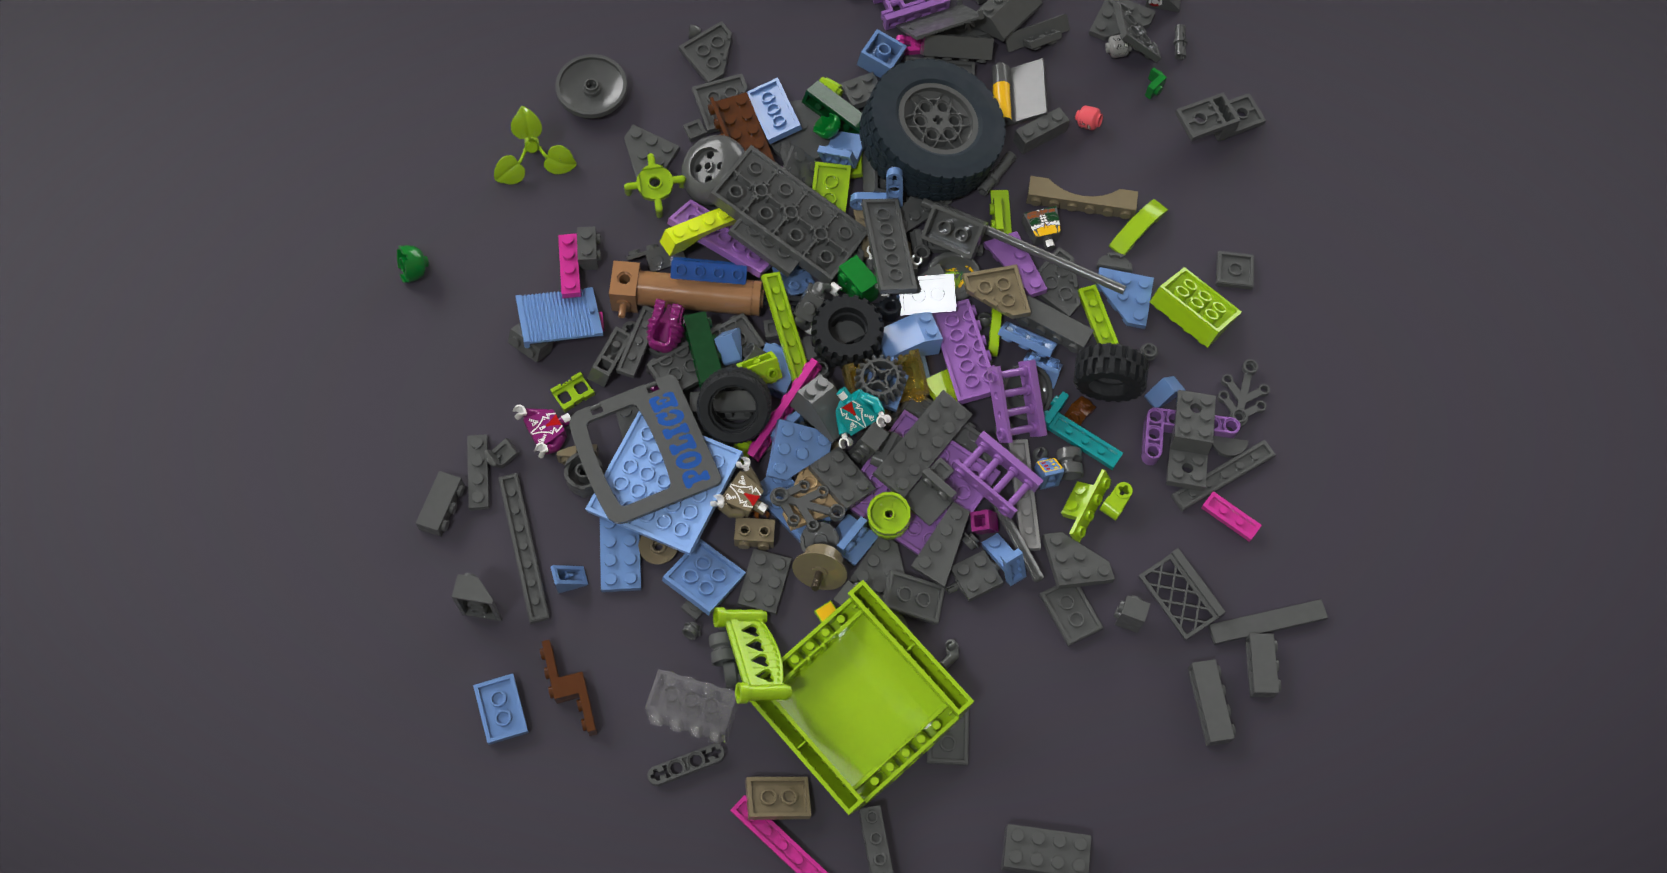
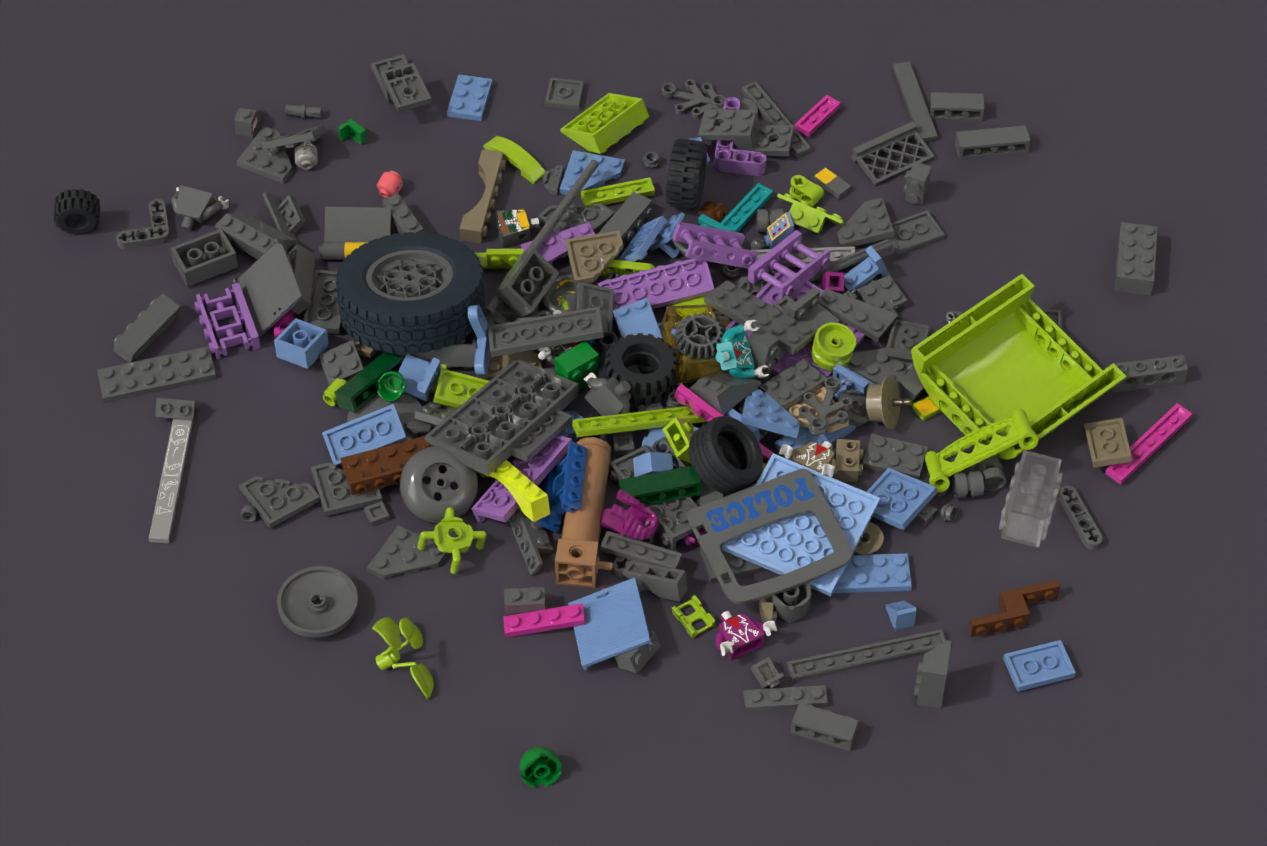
camera: 85 degrees left, 15 degrees down
(1135, 530) = (832, 182): none -> dark grey tile
(1218, 184) = (469, 97): none -> medium blue plate

